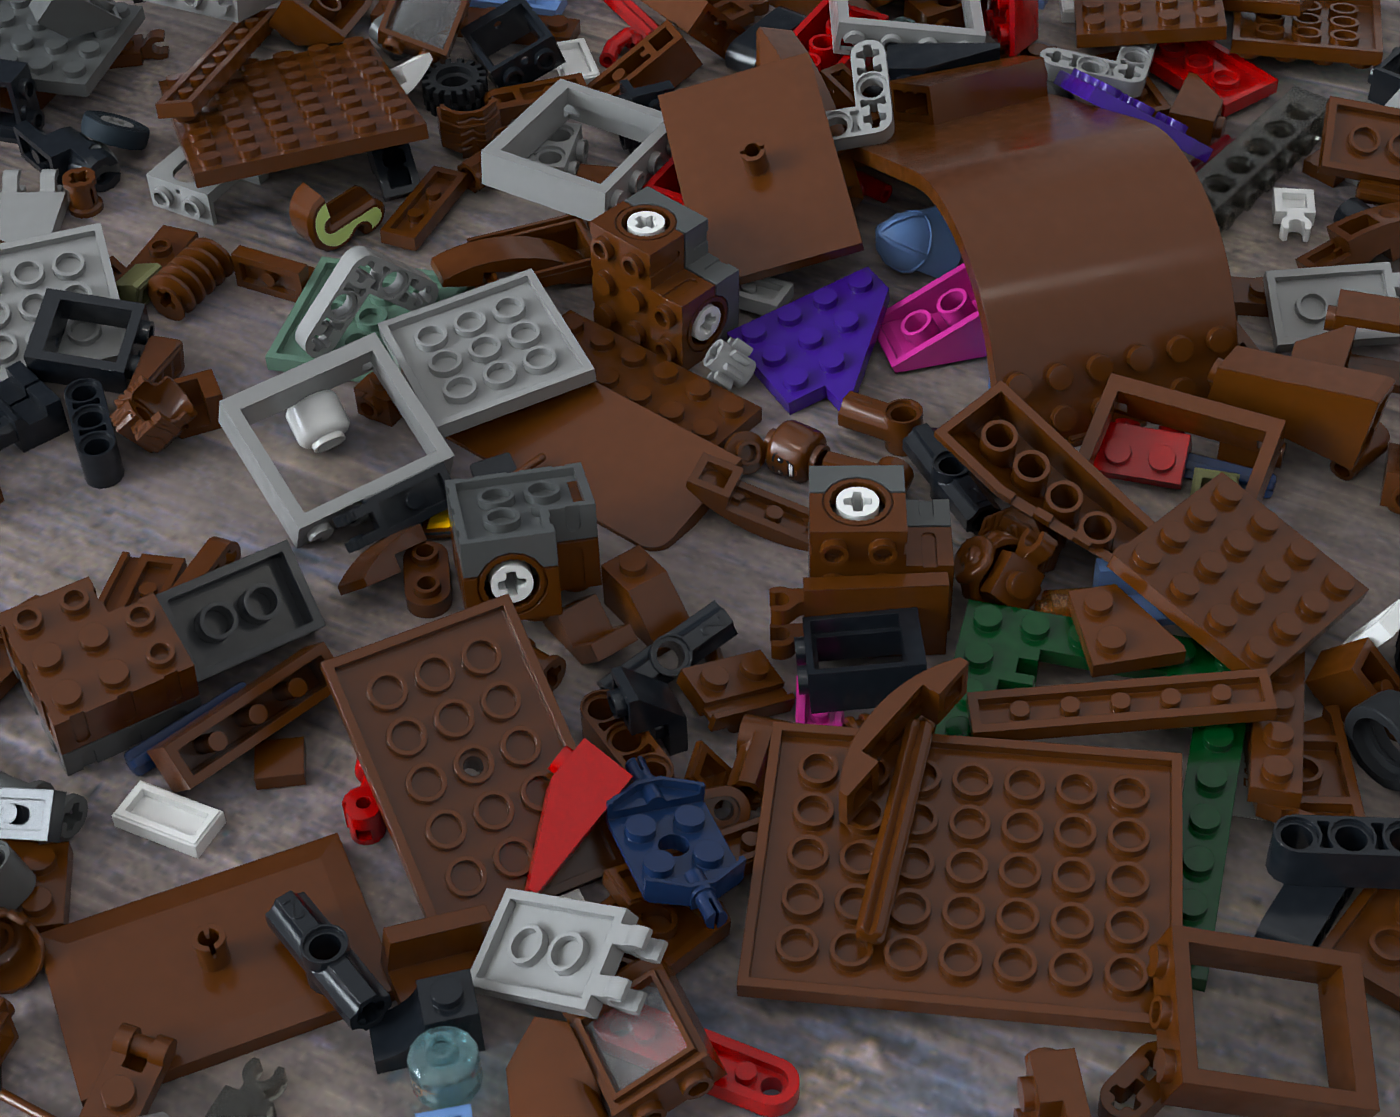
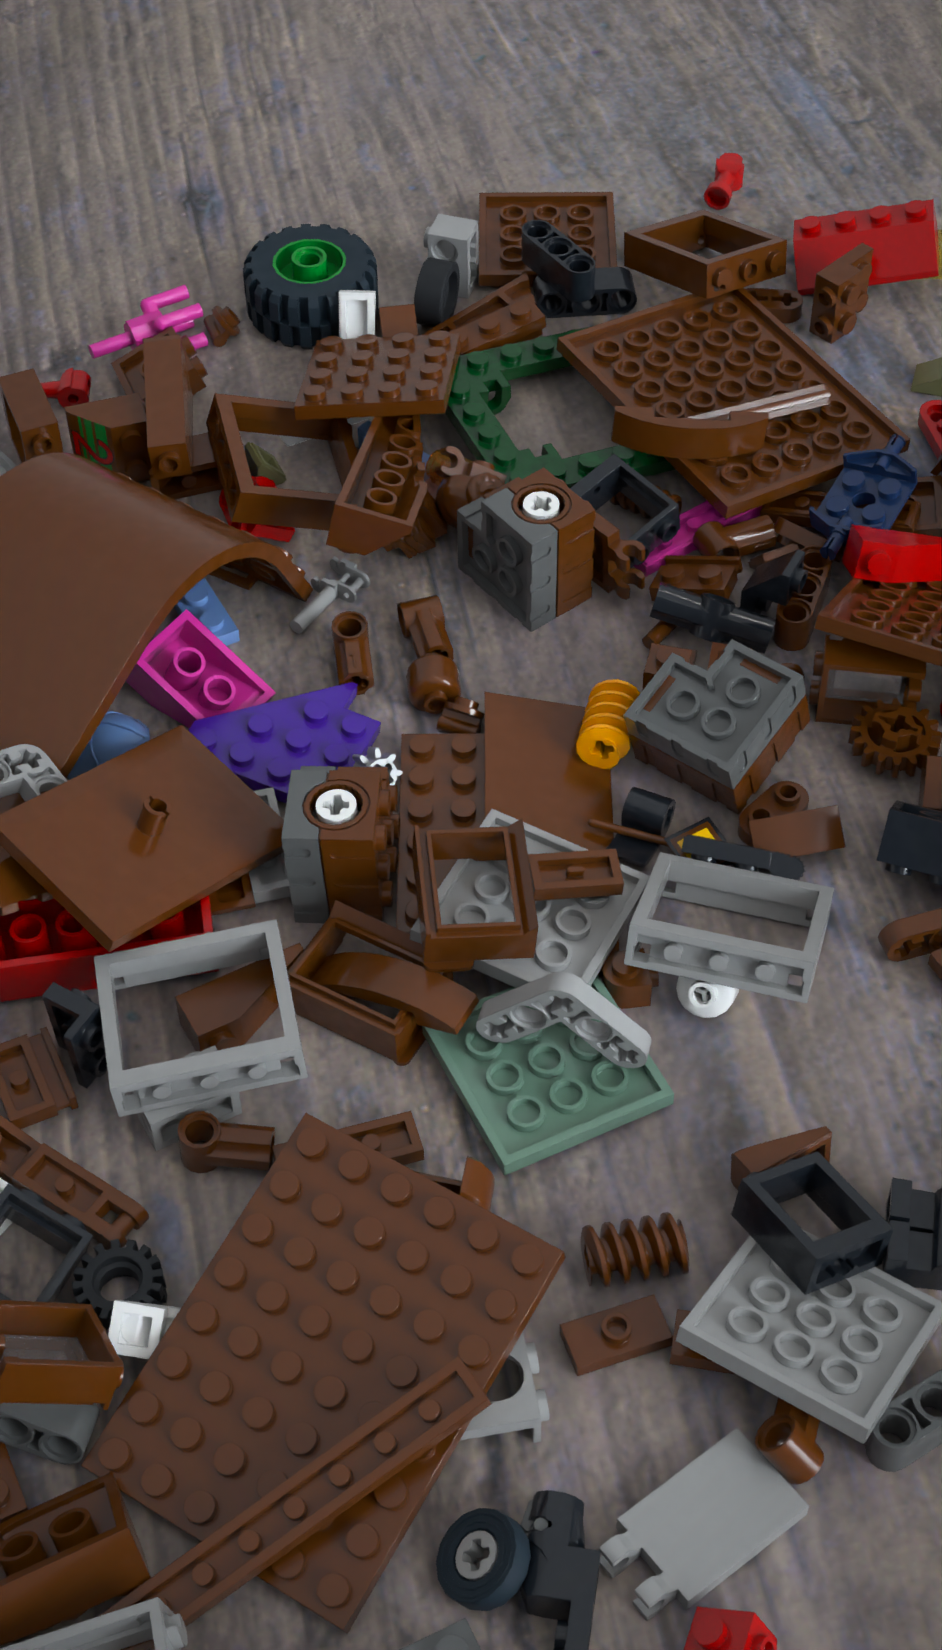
camera: 130 degrees left, 5 degrees up
(82, 192) = (616, 1485): reddish brown bush -> none
(93, 433) = (890, 1129): black beam -> none
(134, 283) = (682, 1284): olive slope -> none
(153, 413) = (831, 1092): reddish brown hair -> none
(205, 396) = (770, 1108): reddish brown panel -> none
(270, 273) = (548, 1197): reddish brown panel -> none
(468, 130) = (189, 1199): reddish brown hair -> none
(471, 364) = (576, 874): none -> reddish brown plate
(547, 322) = (458, 945): none -> reddish brown piece
(628, 517) = (603, 730): none -> light orange piece
(747, 506) = (505, 651): reddish brown slope -> none
(949, 478) = (385, 581): black piece -> none
(1120, 633) = (481, 409): reddish brown wing -> none
(1122, 705) = (539, 378): reddish brown plate -> none

